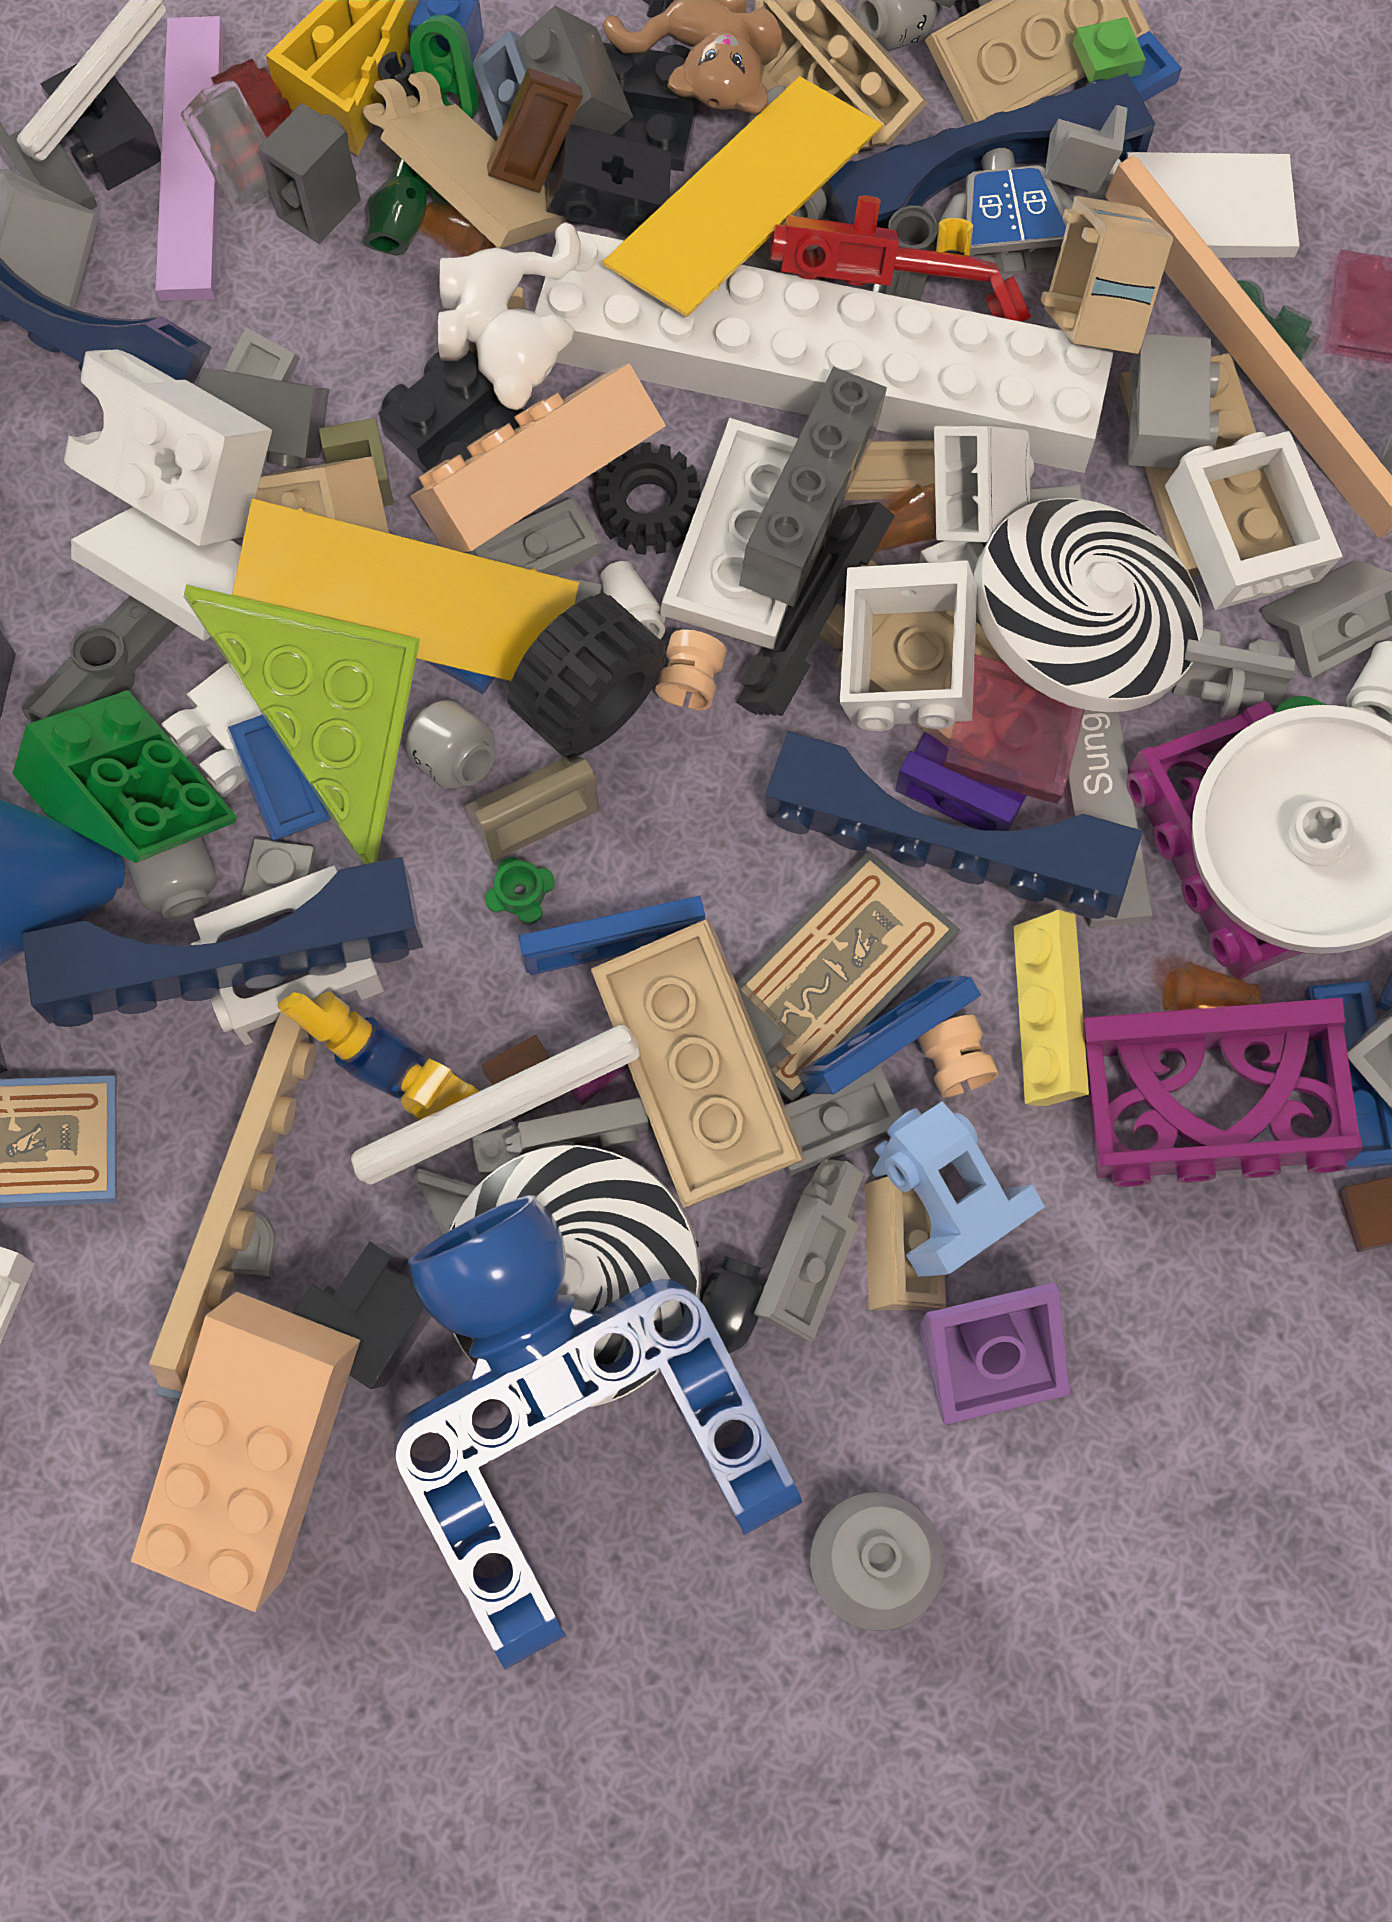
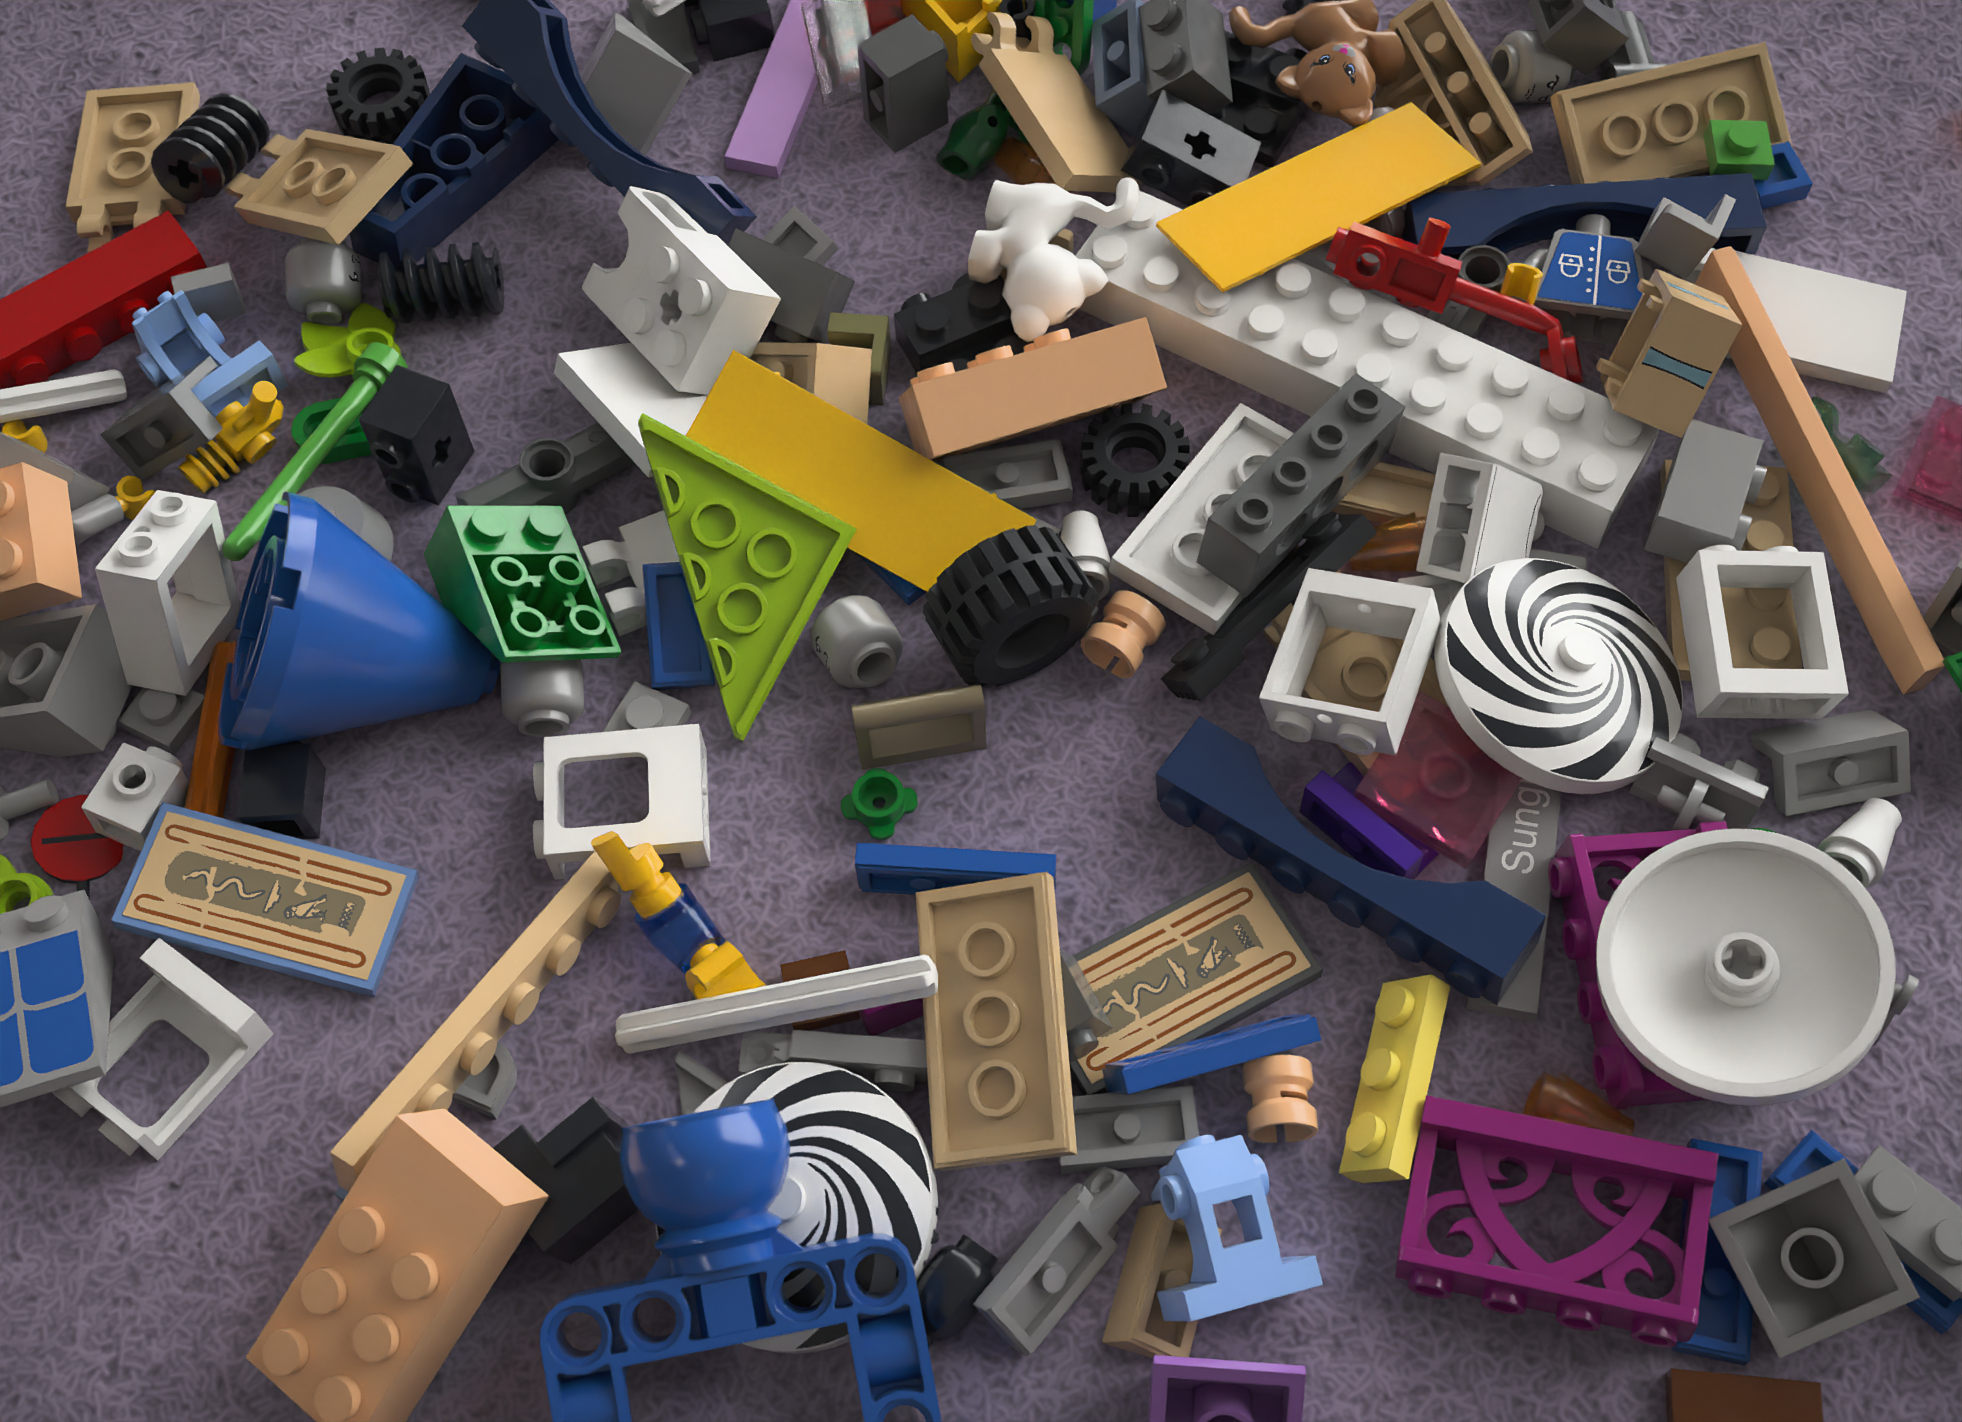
camera: 20 degrees right, 10 degrees down
(353, 918) = (695, 776): dark blue arch -> none
(534, 130) = (1128, 89): reddish brown tile -> none

